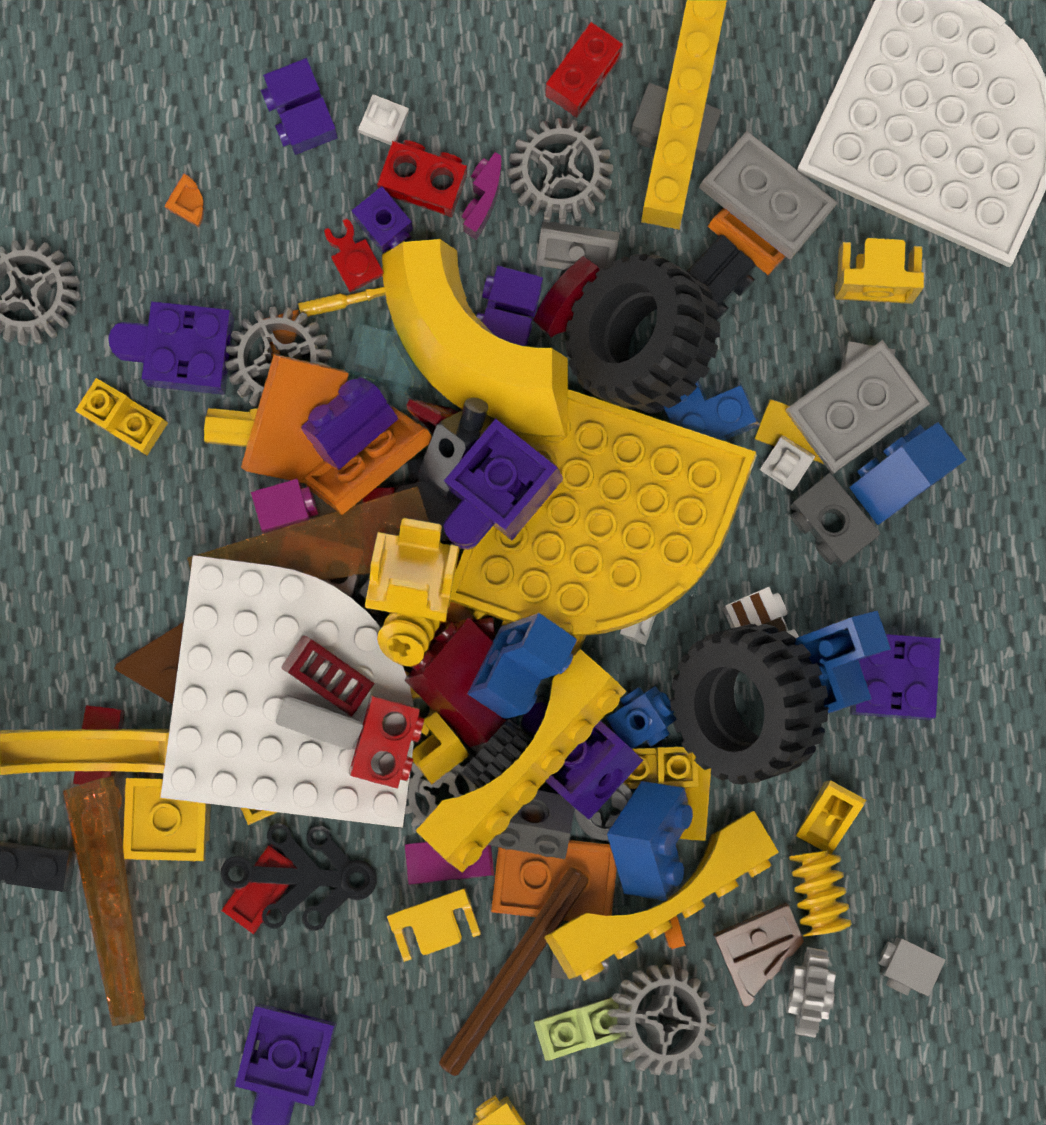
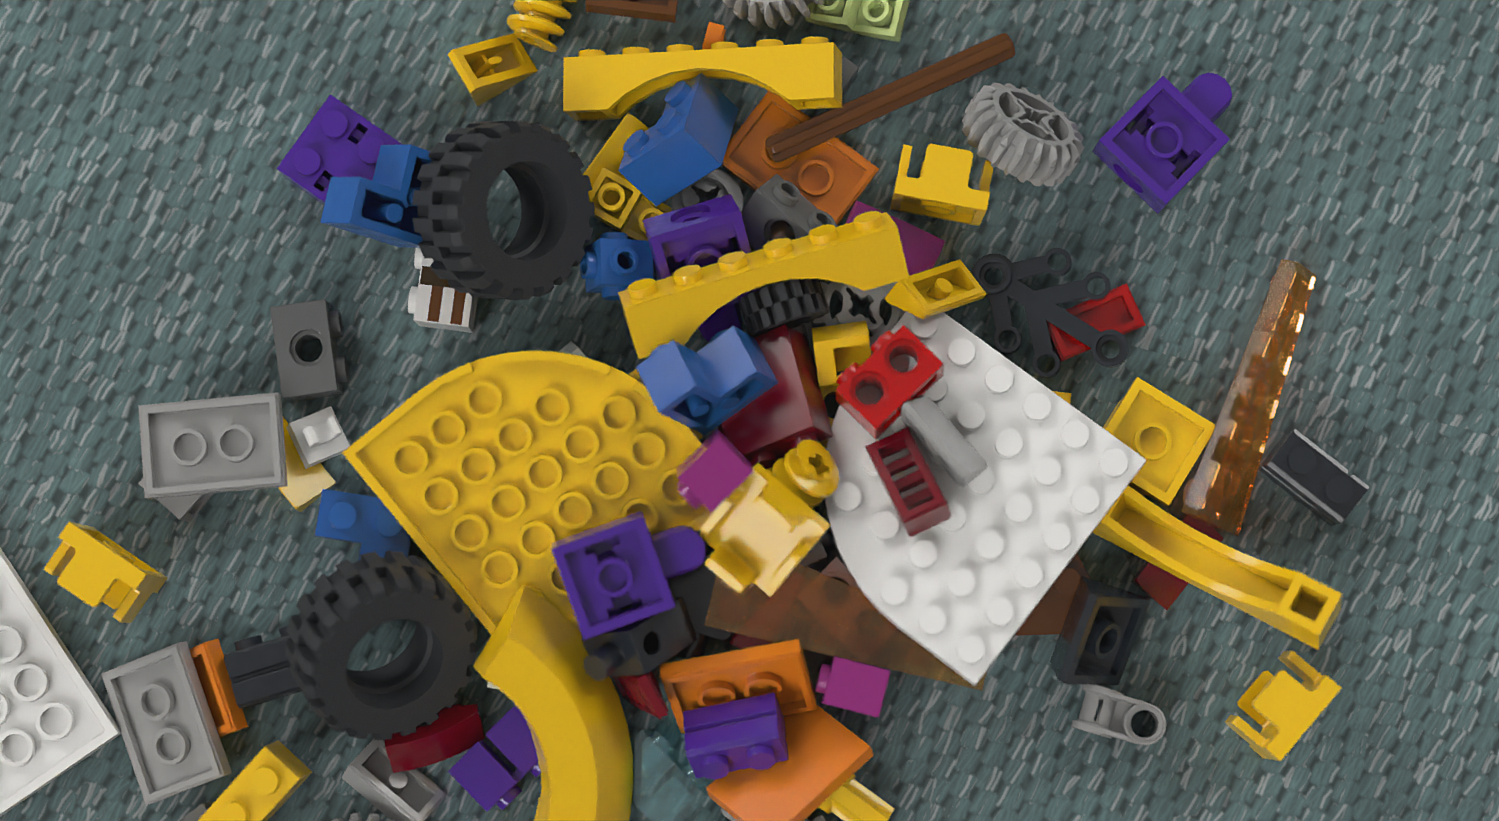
camera: 145 degrees left, 0 degrees up
(80, 603) = (1116, 715): none -> light grey piece
(126, 653) = (1098, 634): none -> black slope
(390, 841) = (936, 290): none -> yellow slope
(395, 998) = (1022, 134): none -> light grey gear
(473, 594) = (712, 472): none -> magenta brick
(909, 469) = (203, 351): blue brick -> none

